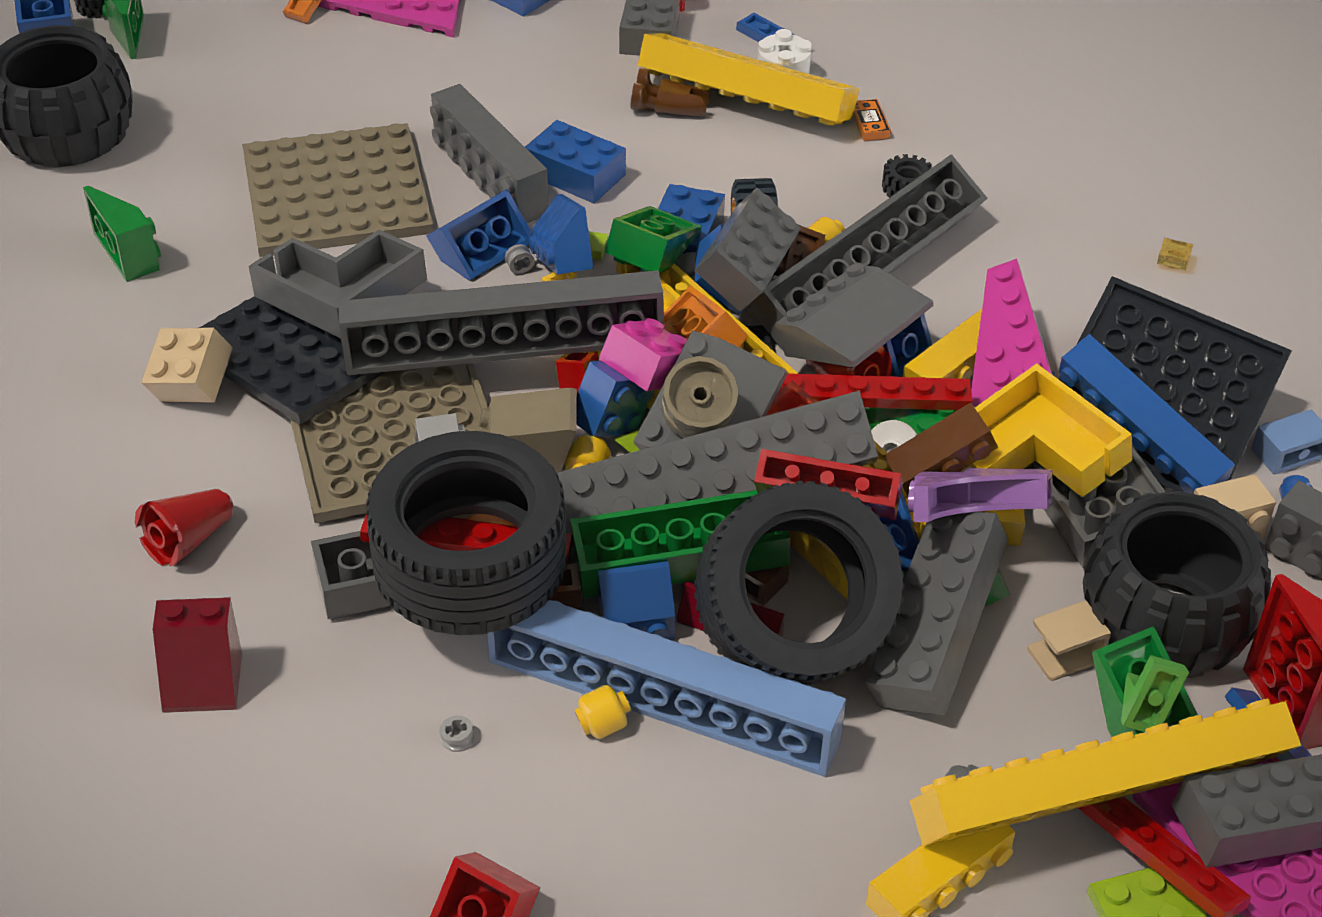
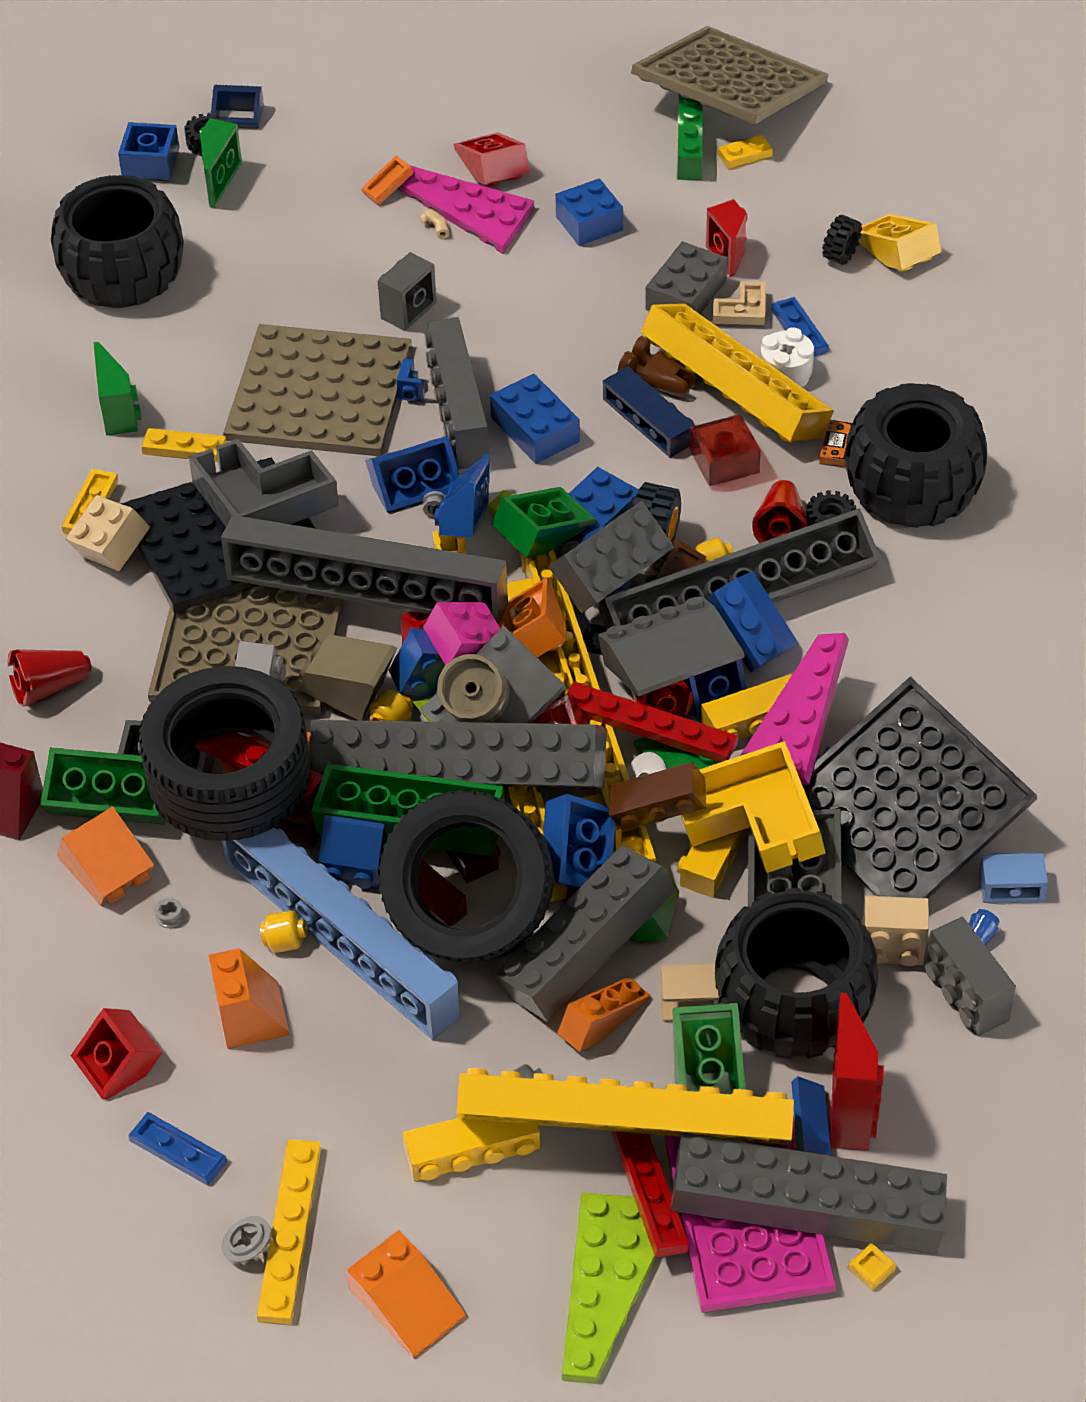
camera: 25 degrees right, 5 degrees up
(142, 338) = (97, 483): none -> yellow plate
(214, 270) = (179, 443): none -> yellow plate
(319, 618) = (92, 782): none -> green slope
(357, 694) = (105, 857): none -> orange slope
(378, 23) = (440, 223): none -> tan arm
(384, 80) = (407, 291): none -> dark grey brick
(431, 163) = (408, 384): none -> blue bracket
(603, 799) = (246, 999): none -> orange slope
(681, 132) = (648, 411): none -> dark blue brick
(716, 28) = (746, 310): none -> tan plate
(777, 144) = (725, 450): none -> clear red brick
(866, 184) = (779, 512): none -> red cone
(873, 486) = (532, 799): red brick -> none
(899, 263) = (753, 620): none -> blue slope
(965, 100) = (911, 485): none -> black tyre
(978, 489) = (665, 841): medium lavender arch -> none
(990, 690) = (600, 1013): none -> orange slope
(1150, 420) = (870, 816): blue brick -> none
(1152, 693) = (699, 1059): bright green slope -> none
(1175, 254) = (1034, 662): clear yellow plate -> none

